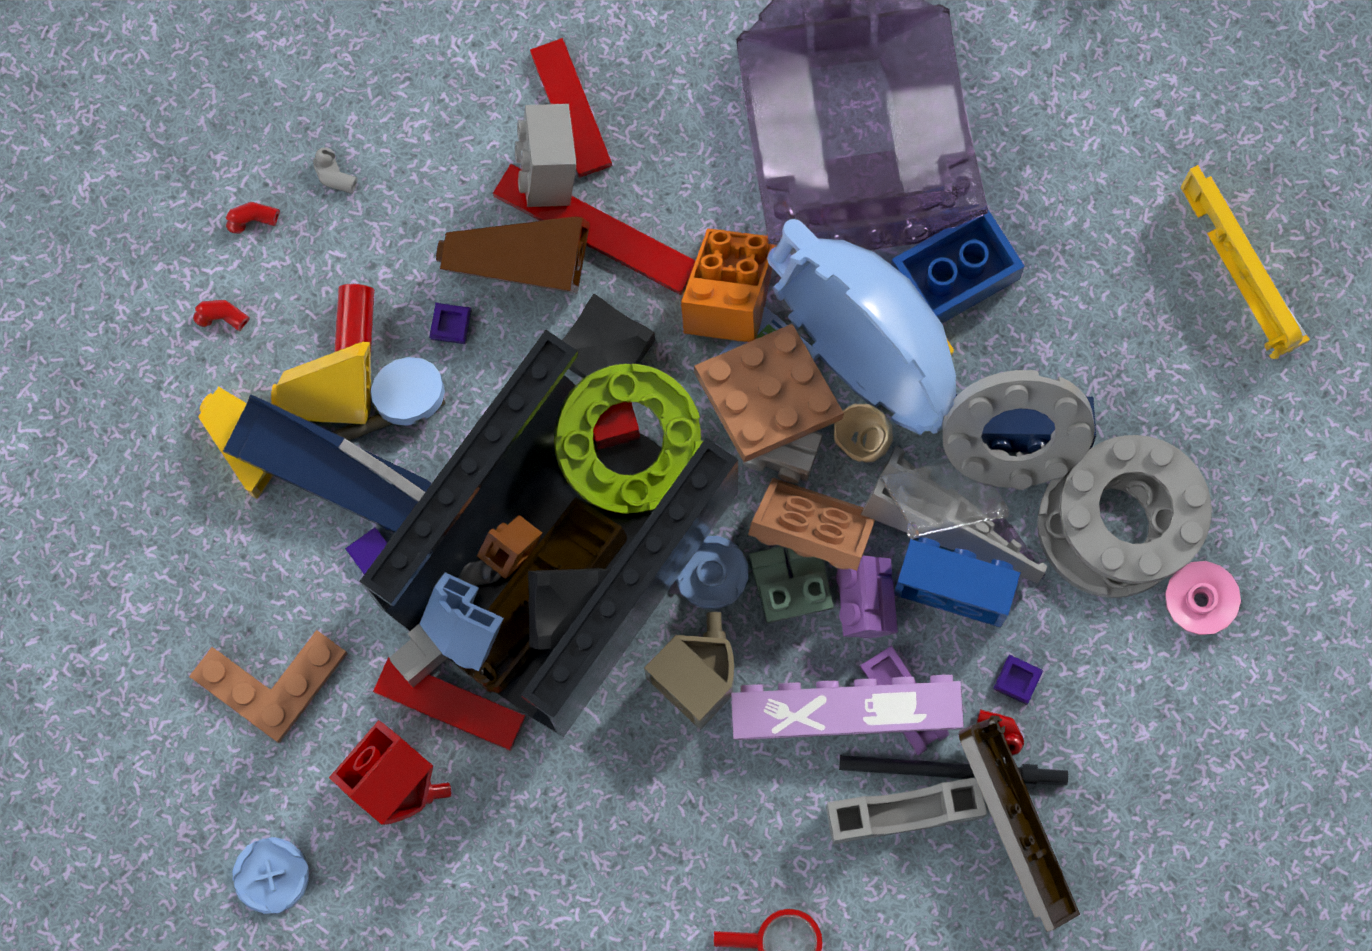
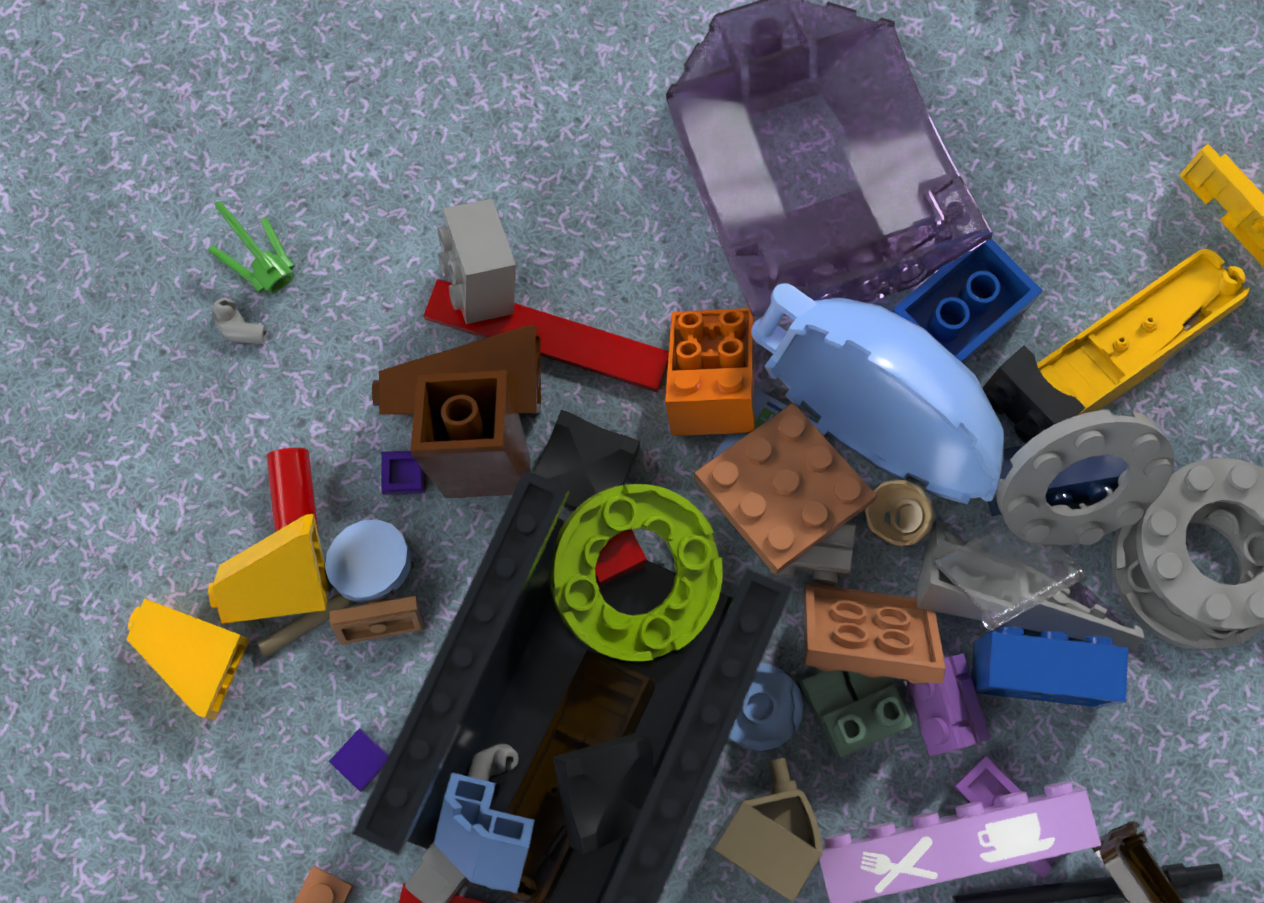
camera: 15 degrees left, 0 degrees up
(219, 309) = (133, 505): red arm -> none
(248, 212) = (149, 386): red arm -> none
(324, 464) = (291, 670): dark blue piece -> none
(369, 130) = (270, 270): none -> bright green plant
(406, 440) = (377, 620): none -> medium nougat plate
(509, 297) = (469, 433): none -> reddish brown slope
(509, 546) = (522, 725): dark orange brick -> none
(564, 87) = (479, 182): red tile -> none
(987, 348) = (1028, 397): none -> black brick
(1012, 732) = (1113, 819): red arm -> none
(1018, 679) = (1135, 765): dark purple tile -> none
(1108, 320) = (1145, 331): none -> yellow piece

